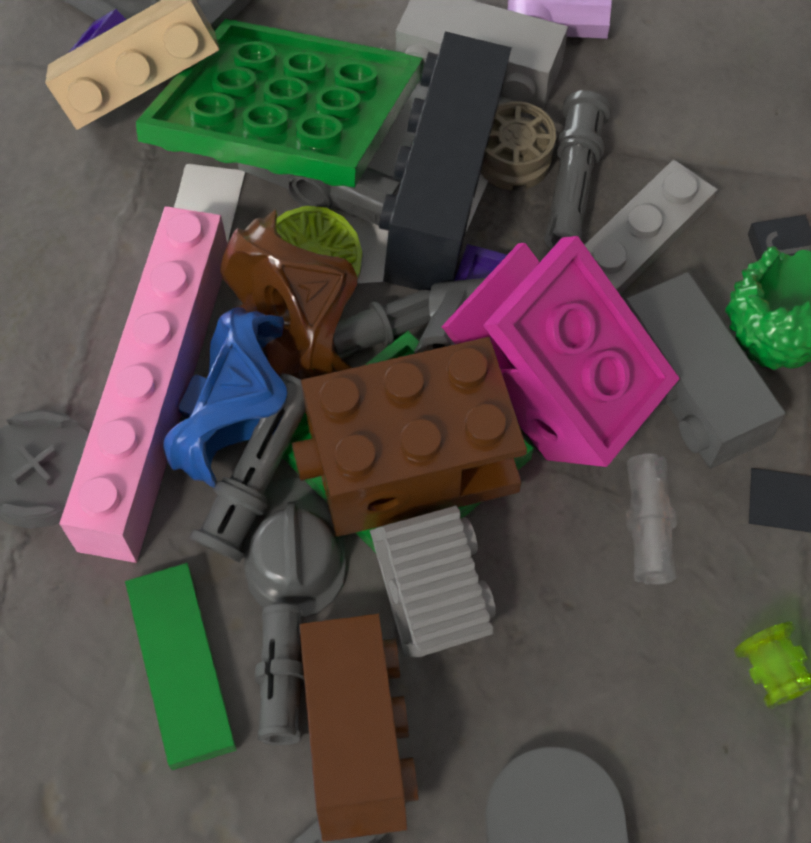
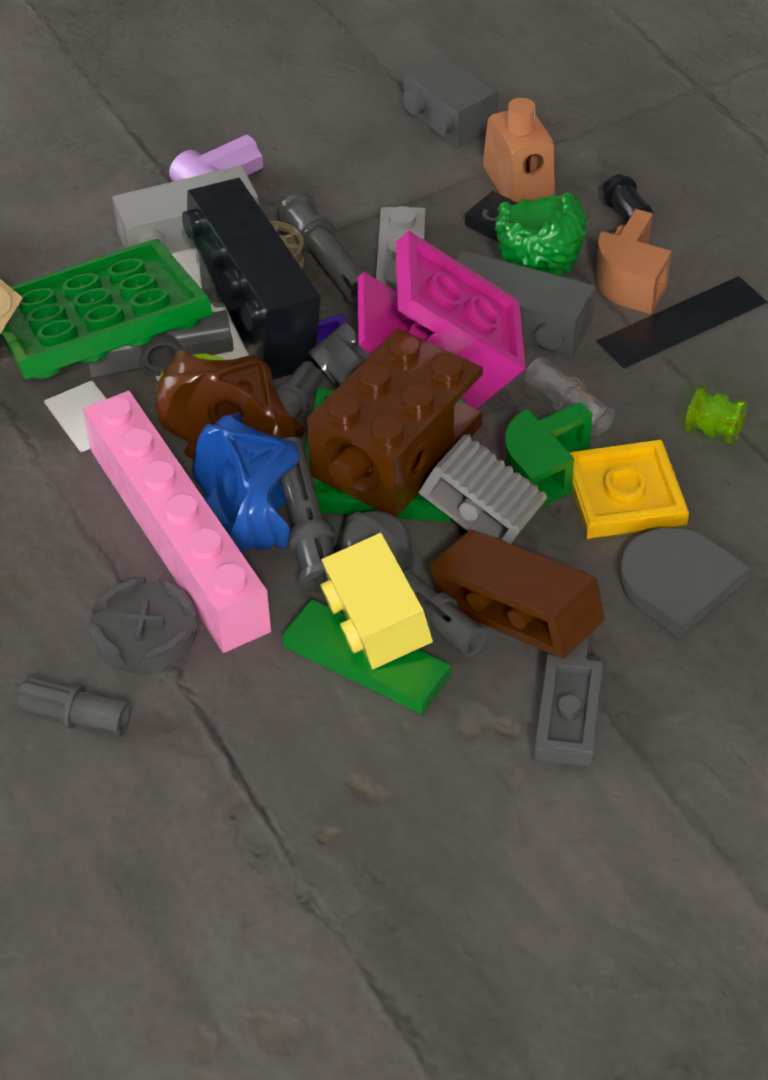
camera: 40 degrees left, 15 degrees down
(210, 625) = (376, 601): none -> light yellow brick
(543, 558) = (542, 447): none -> green brick
(605, 674) = (626, 489): none -> yellow tile

